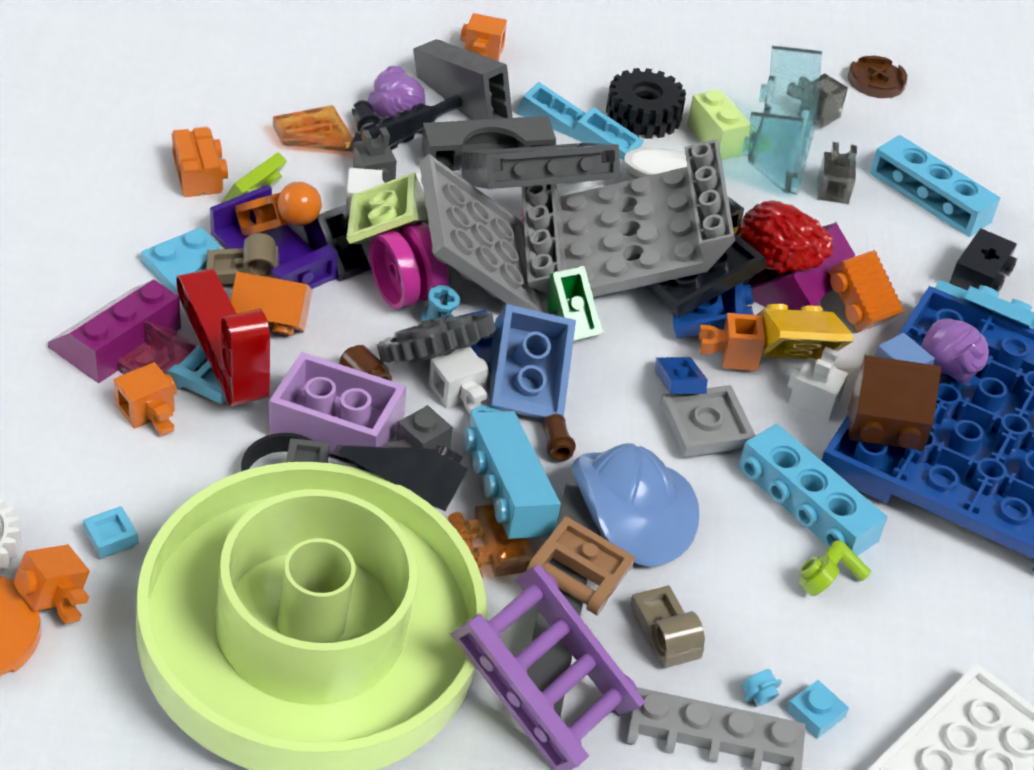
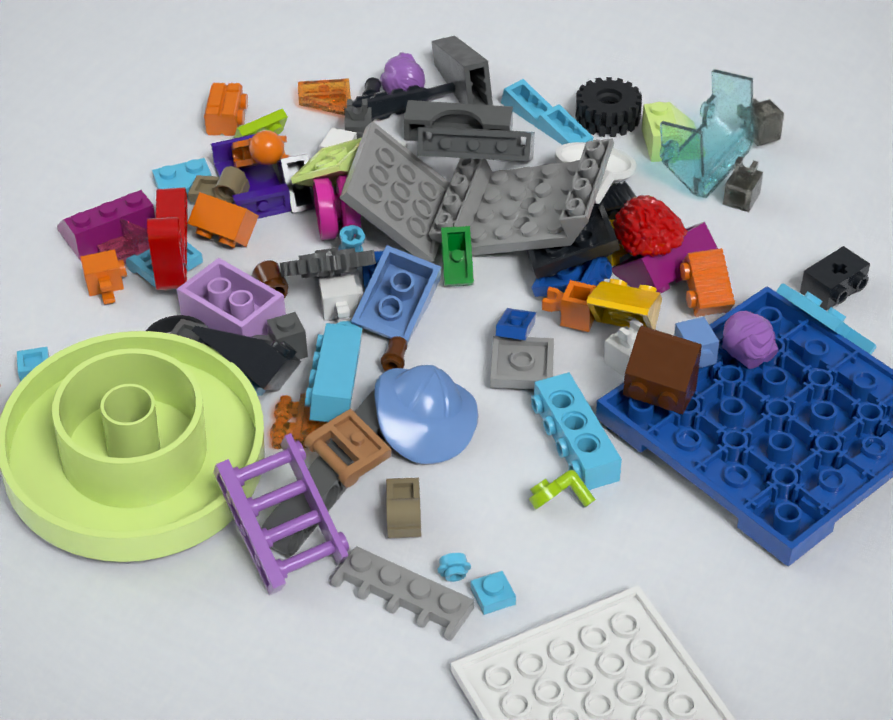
camera: 25 degrees right, 0 degrees up
(485, 35) = (500, 39): orange brick -> none
(877, 77) = (835, 109): reddish brown tile -> none
(934, 185) = (830, 206): medium azure brick -> none

